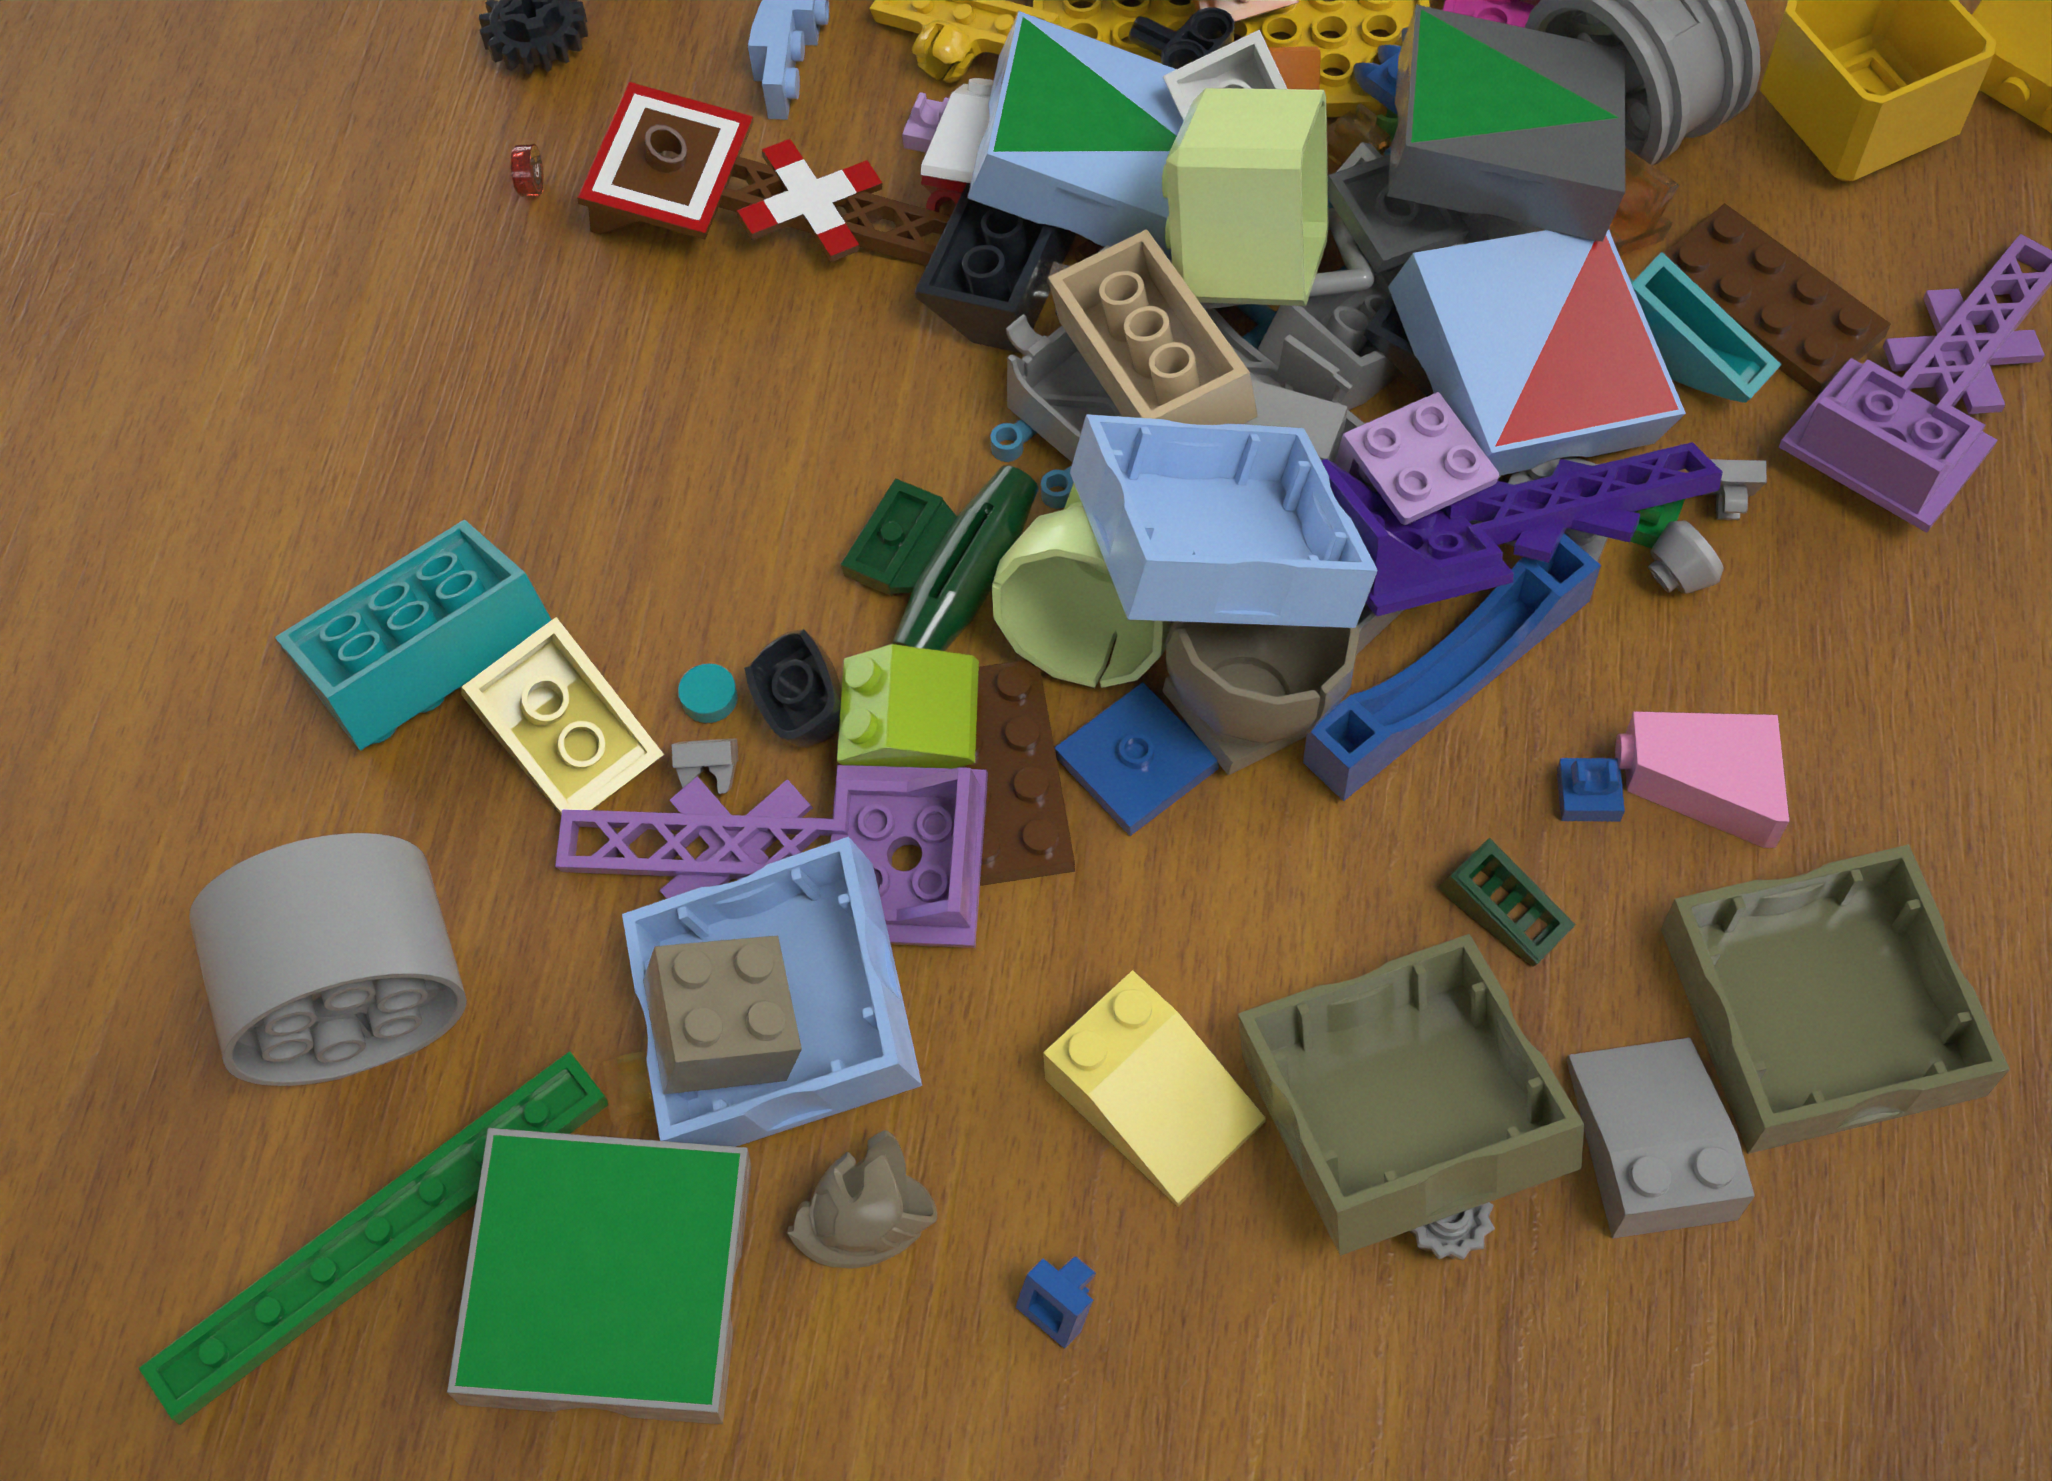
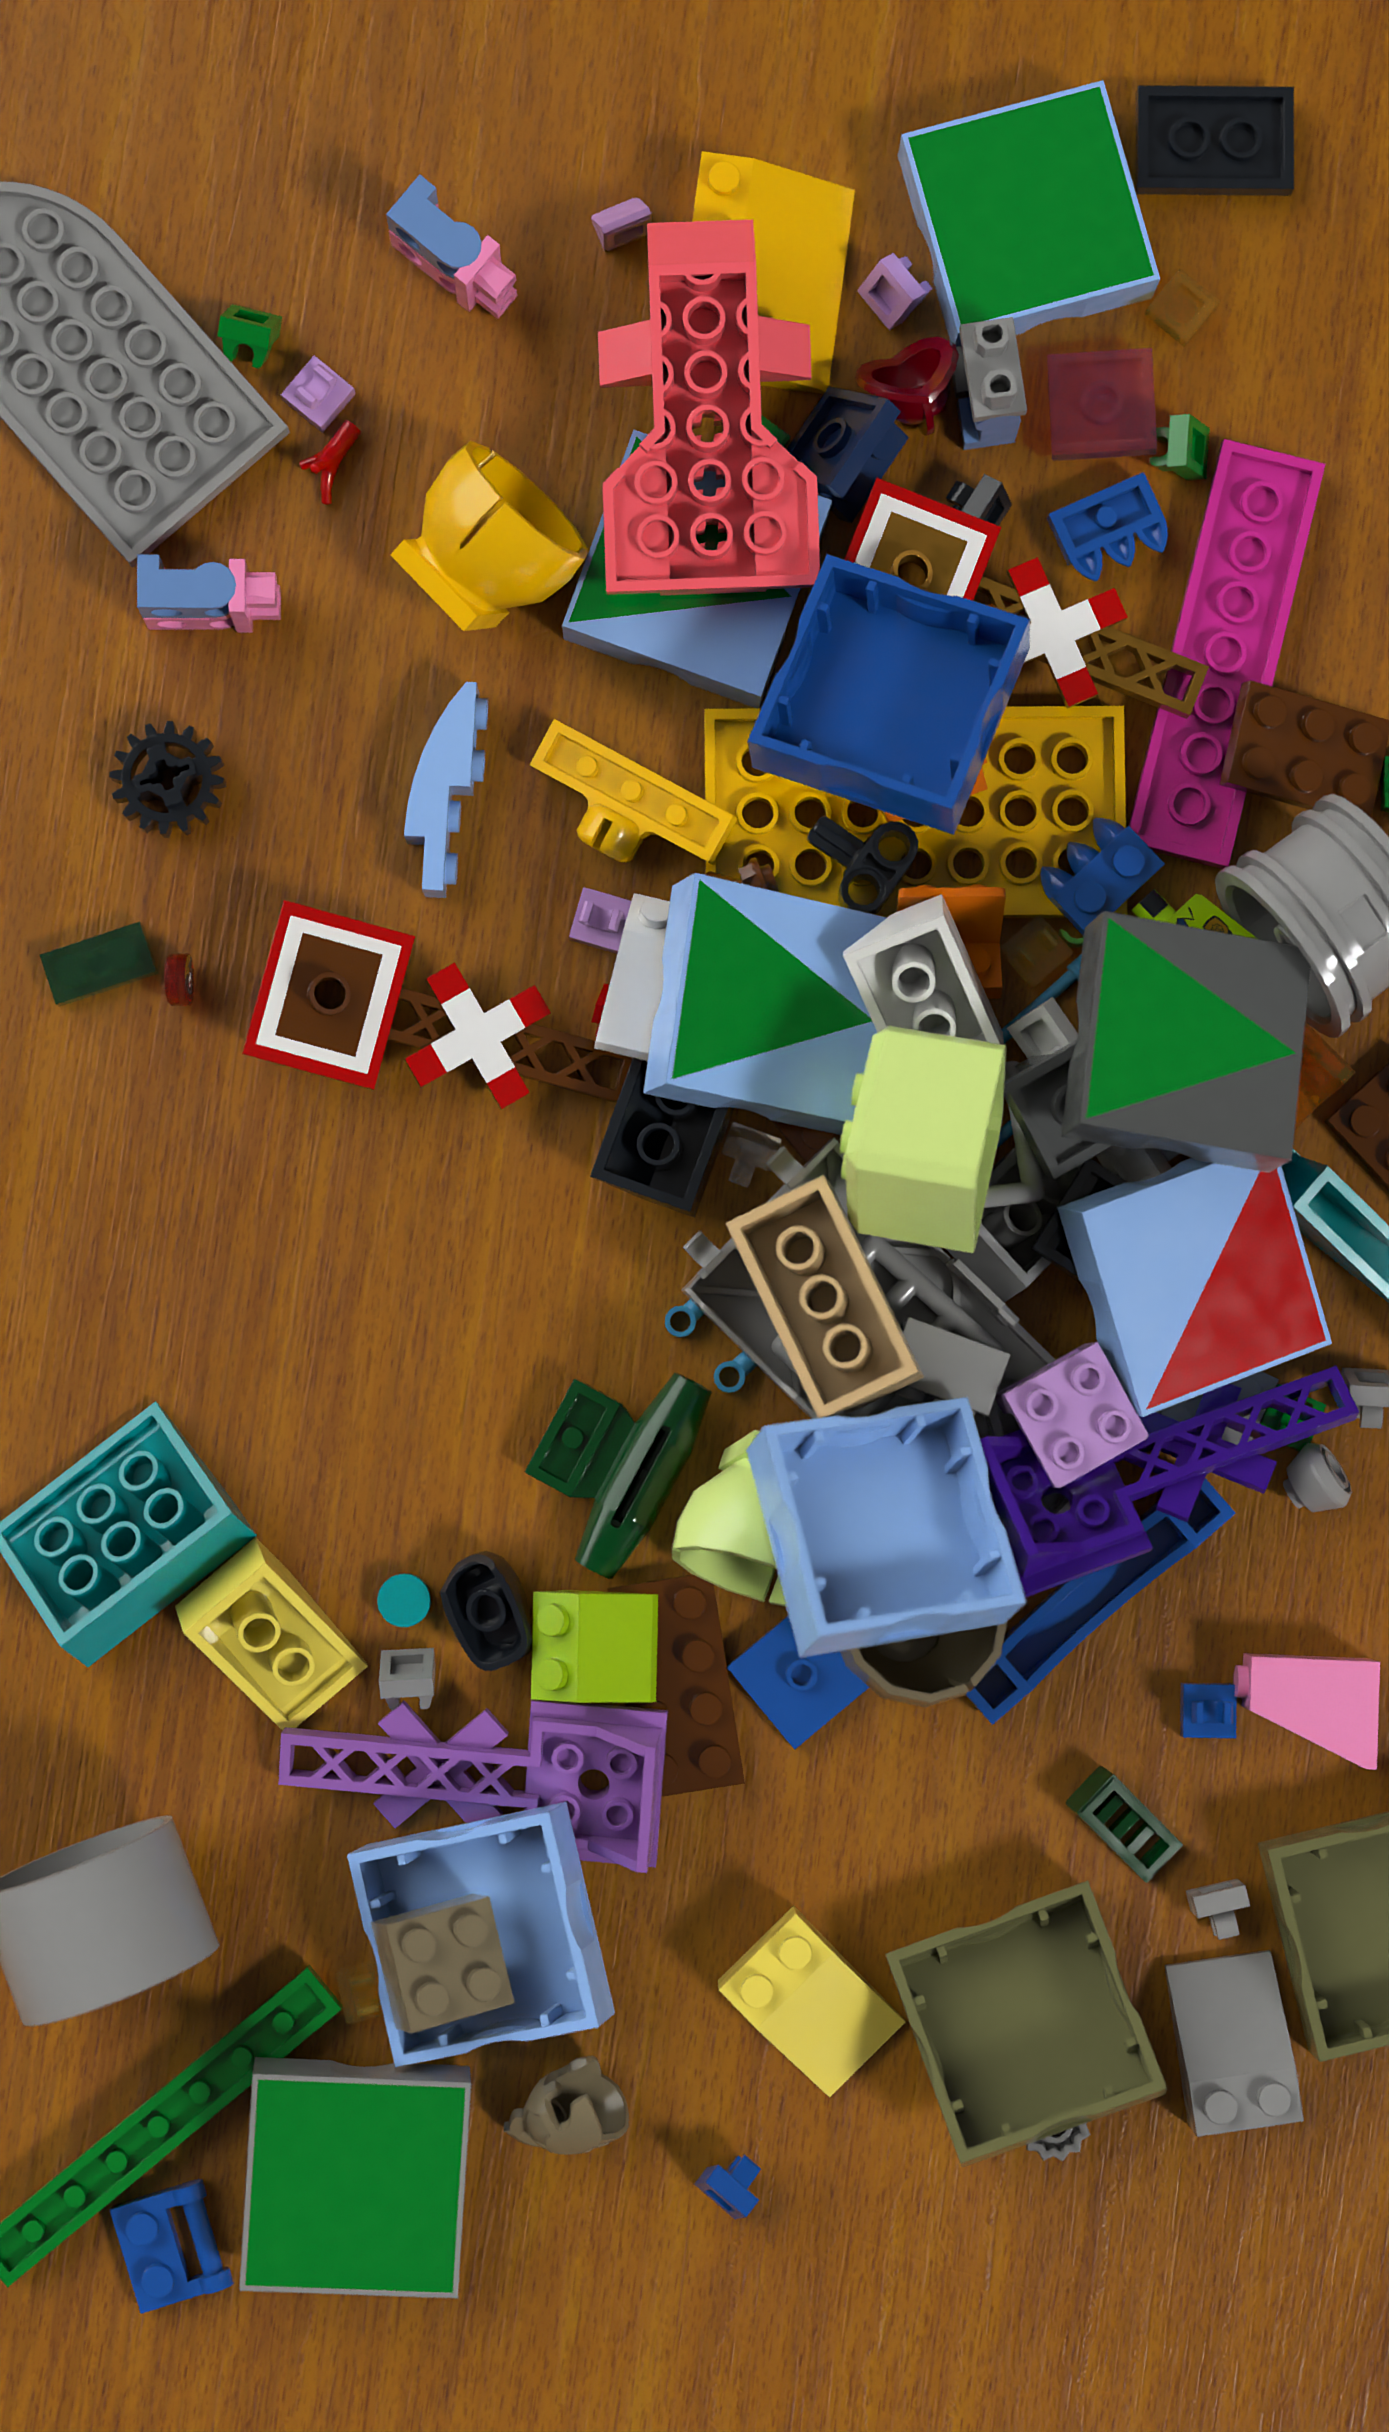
camera: 10 degrees left, 25 degrees up
(358, 1386) = (155, 2252): none -> blue plate
(453, 169) = (99, 964): none -> clear green plate
(1624, 977) = (1218, 1903): none -> light grey tile

